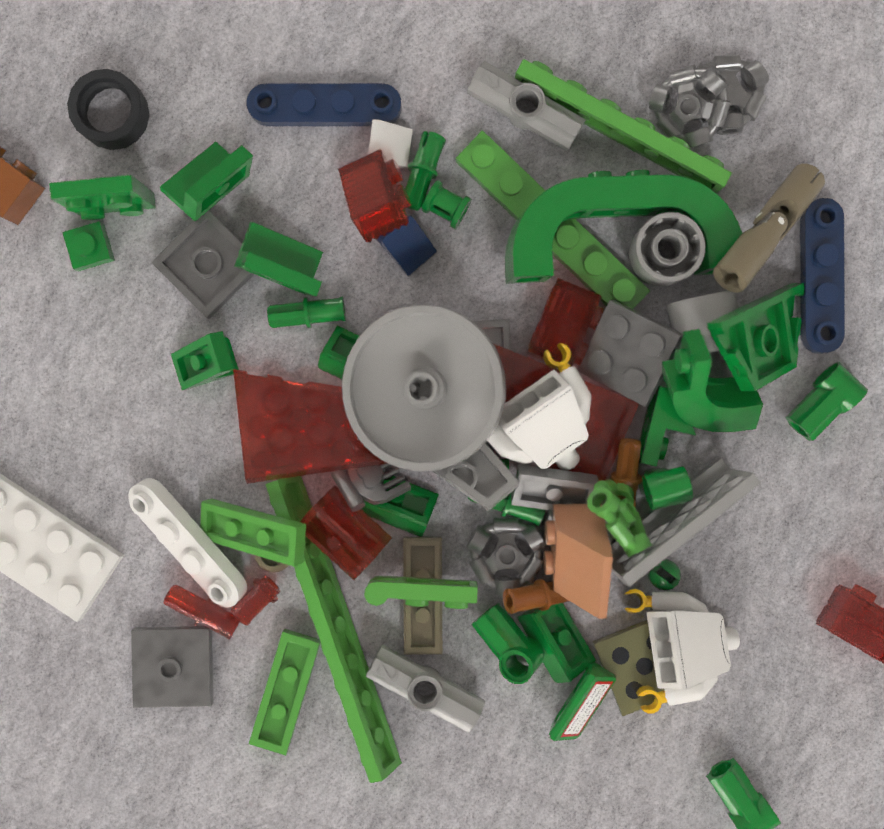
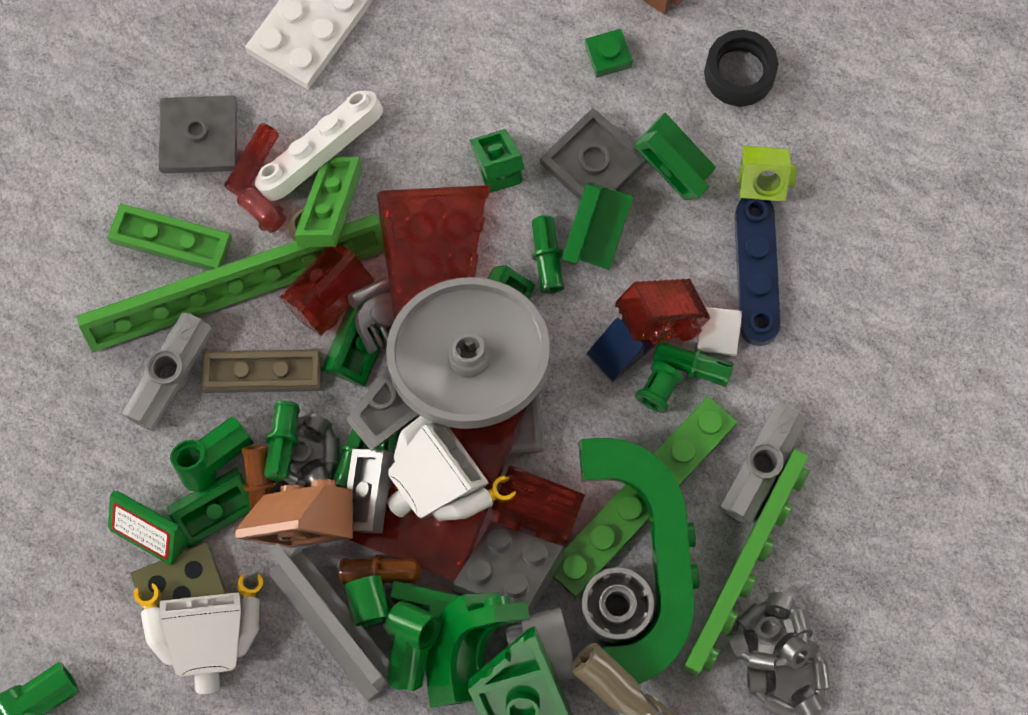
camera: 90 degrees right, 15 degrees down
(103, 195) = (652, 58): green plate -> none
(226, 88) = (761, 159): none -> lime brick
(420, 591) = (267, 363): bright green plate -> none
(502, 574) = (281, 440): none -> green axle
(621, 515) = (341, 552): bright green piece -> none
(660, 582) = (282, 623): green hinge -> none
(701, 444) = (413, 635): none -> green piece

